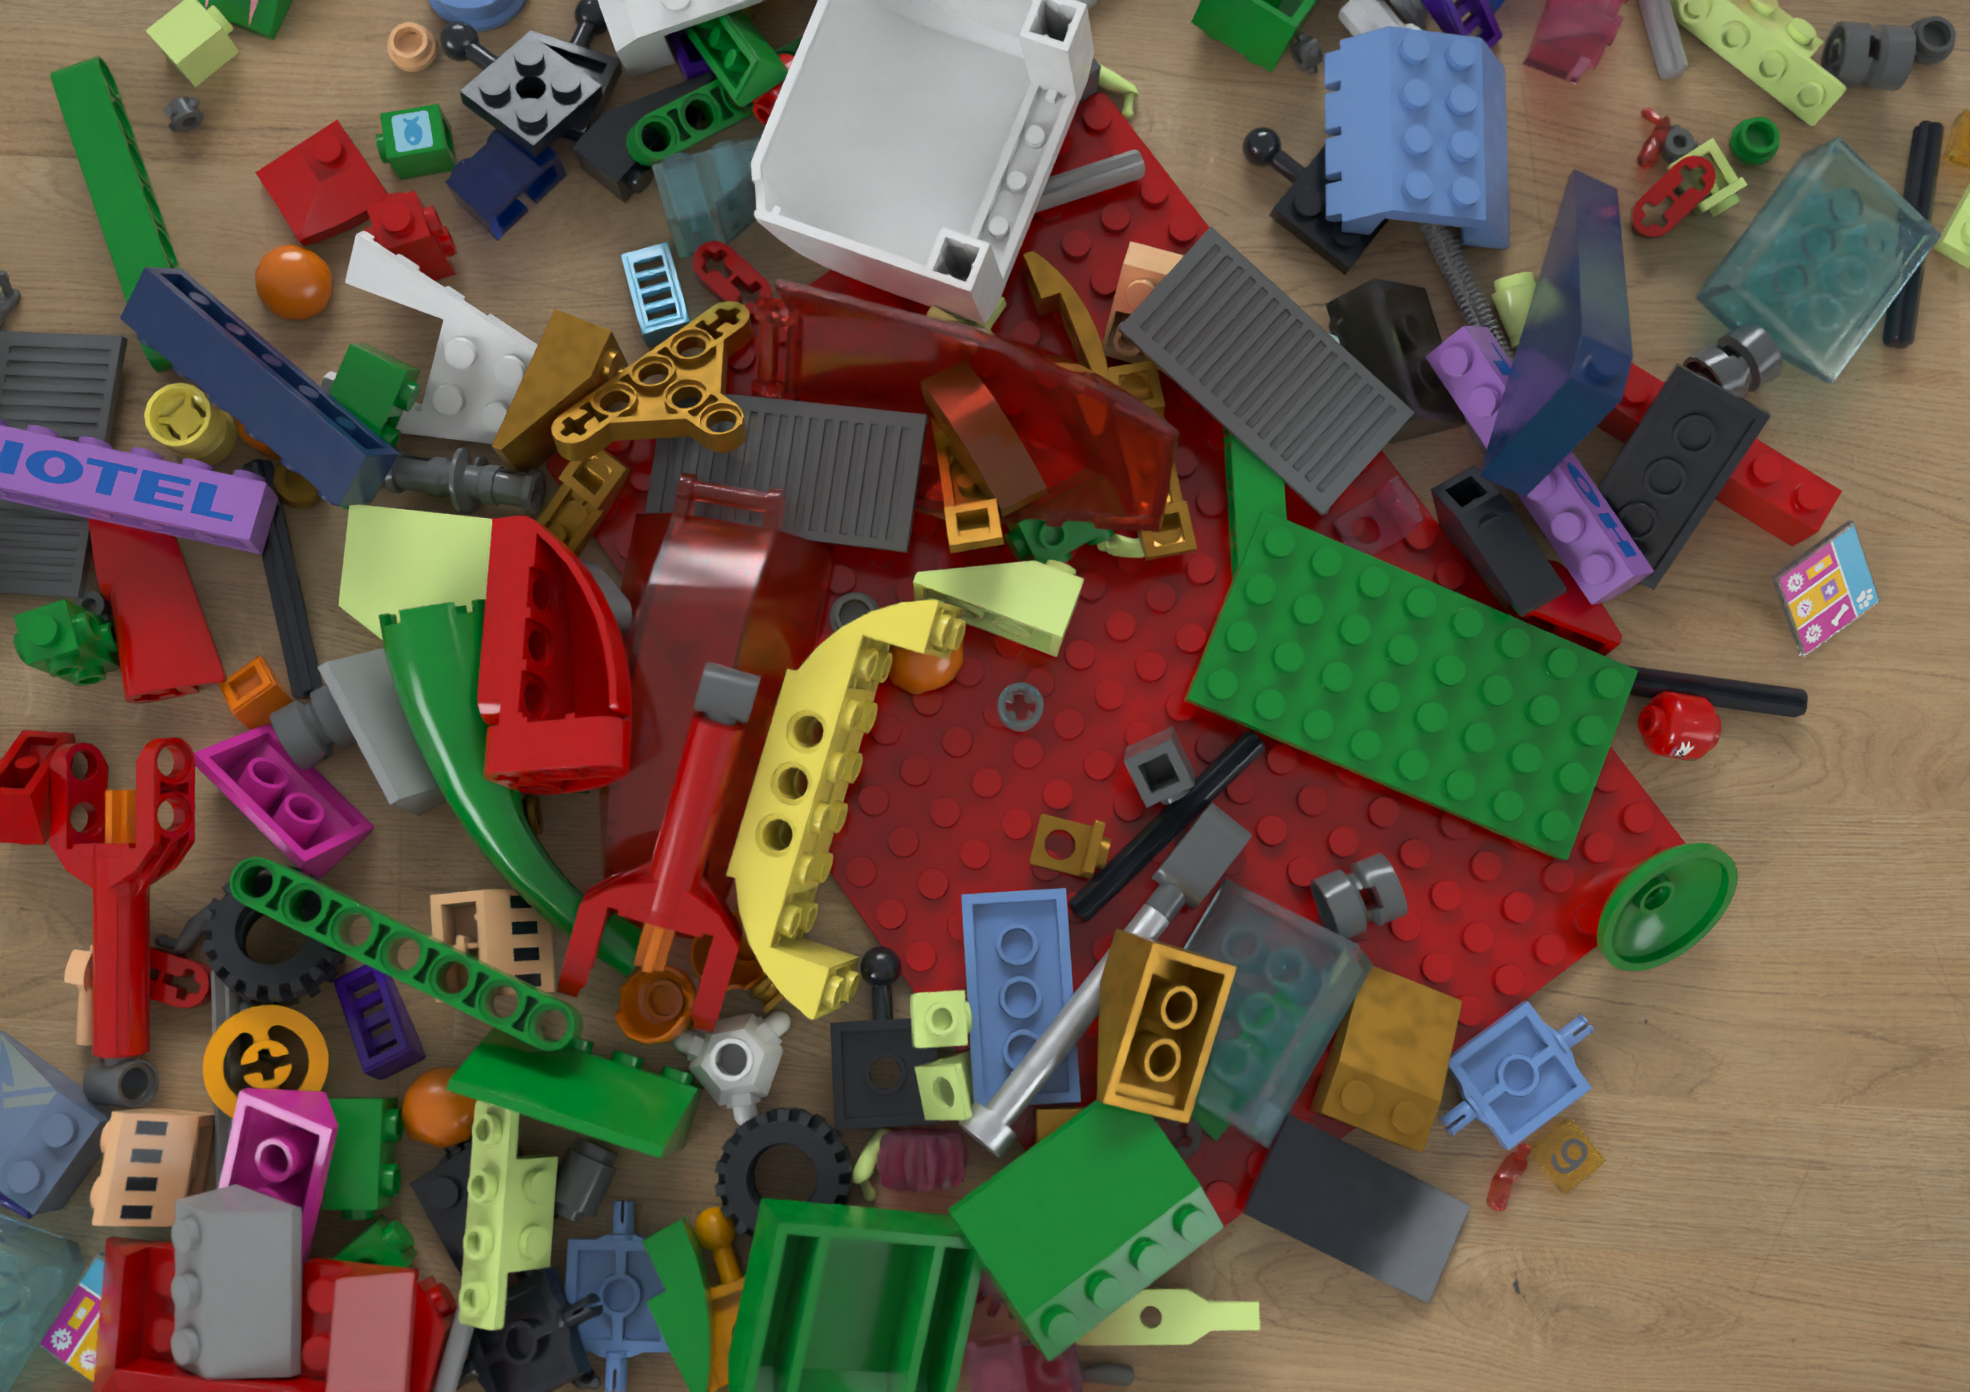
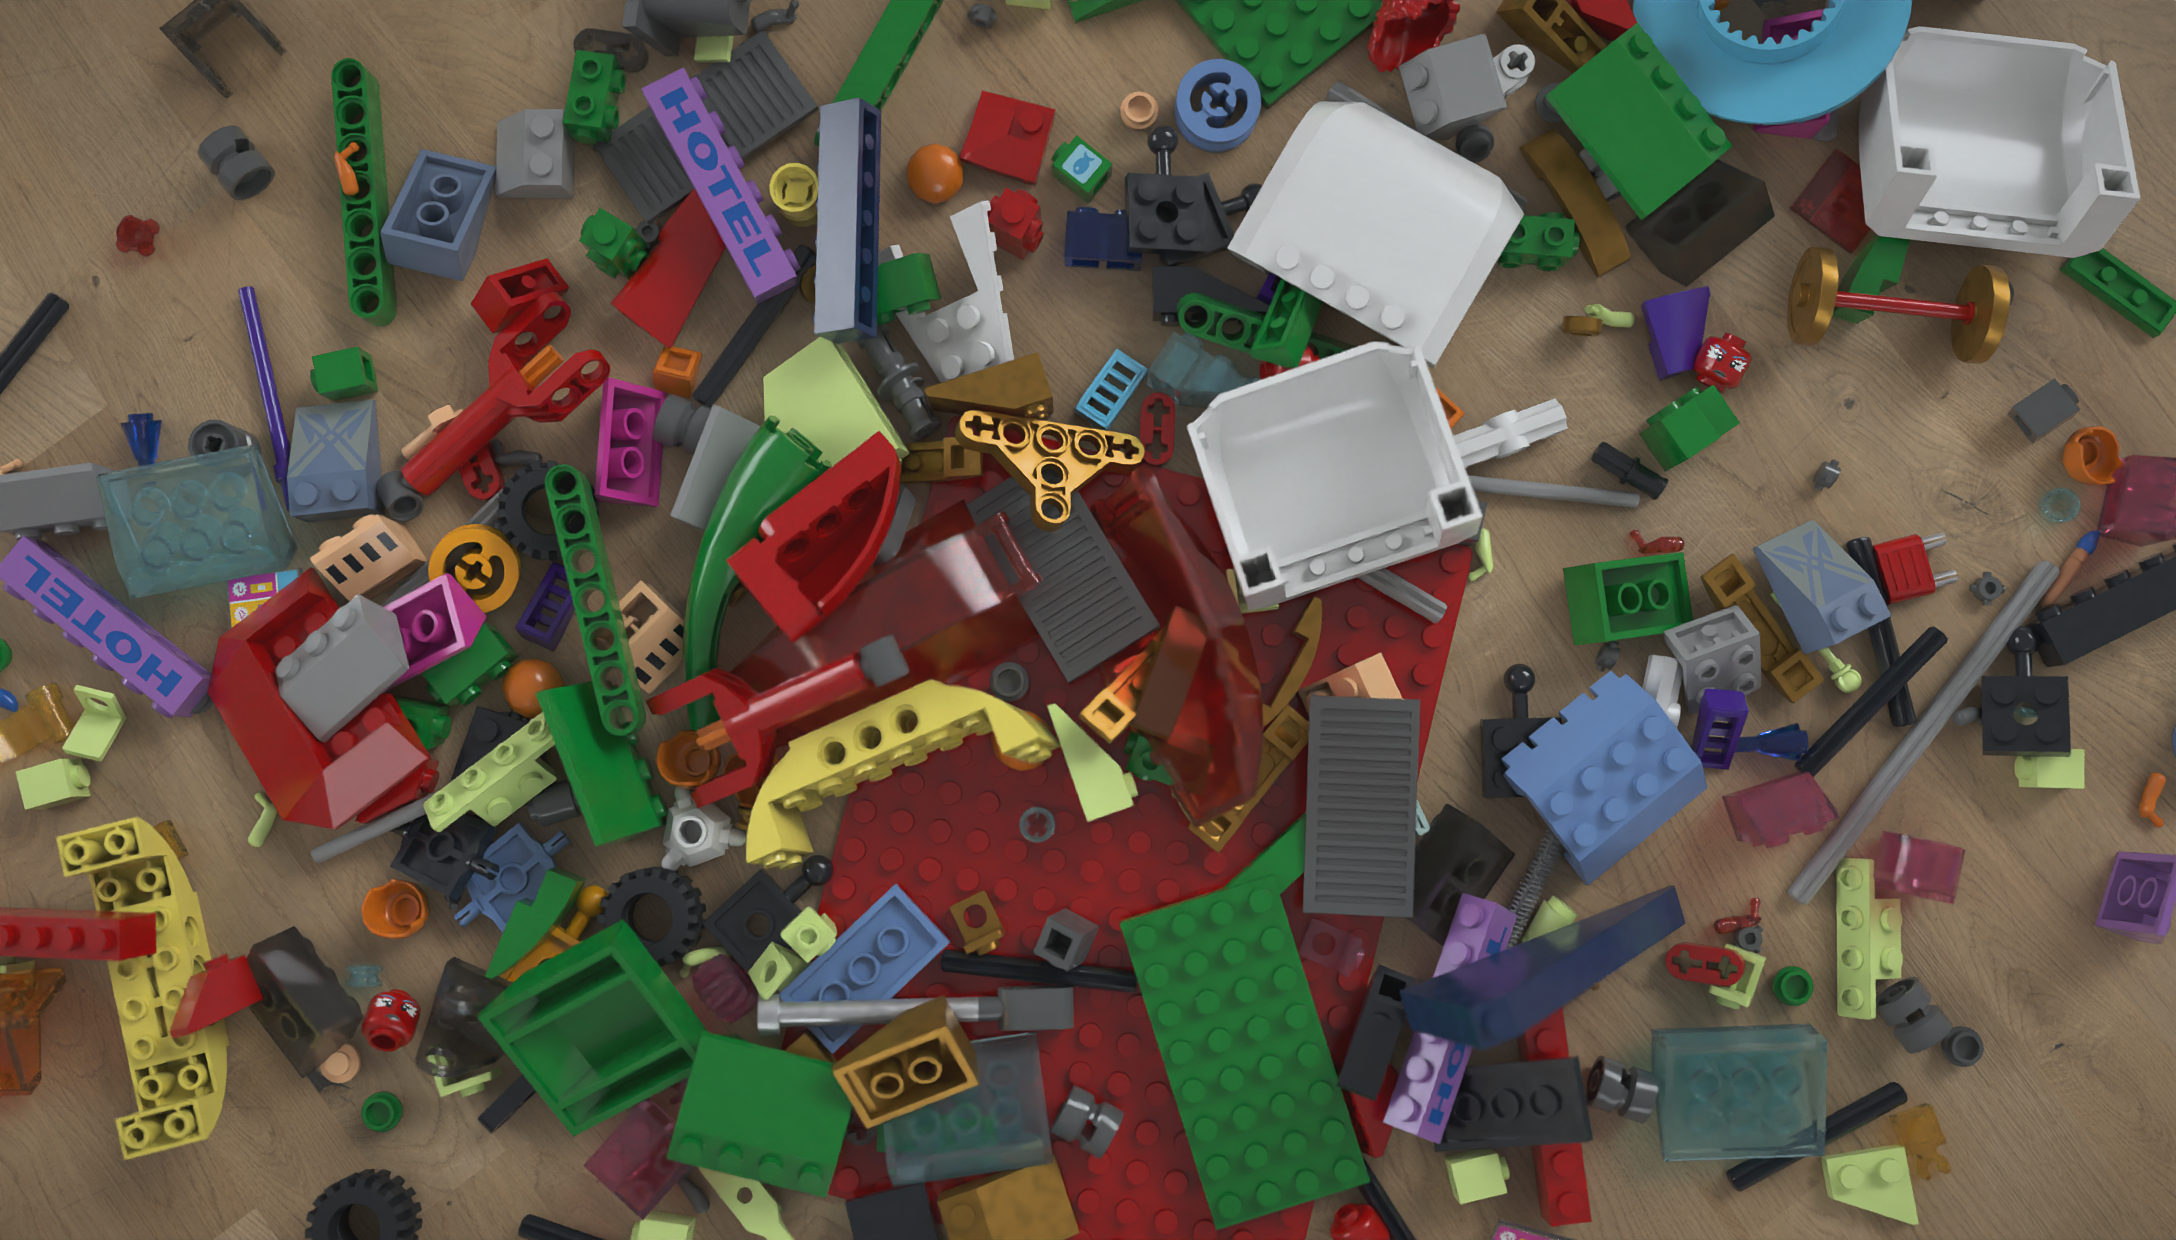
camera: 55 degrees right, 5 degrees up
(1707, 569) = (1477, 1174): none -> yellowish green brick

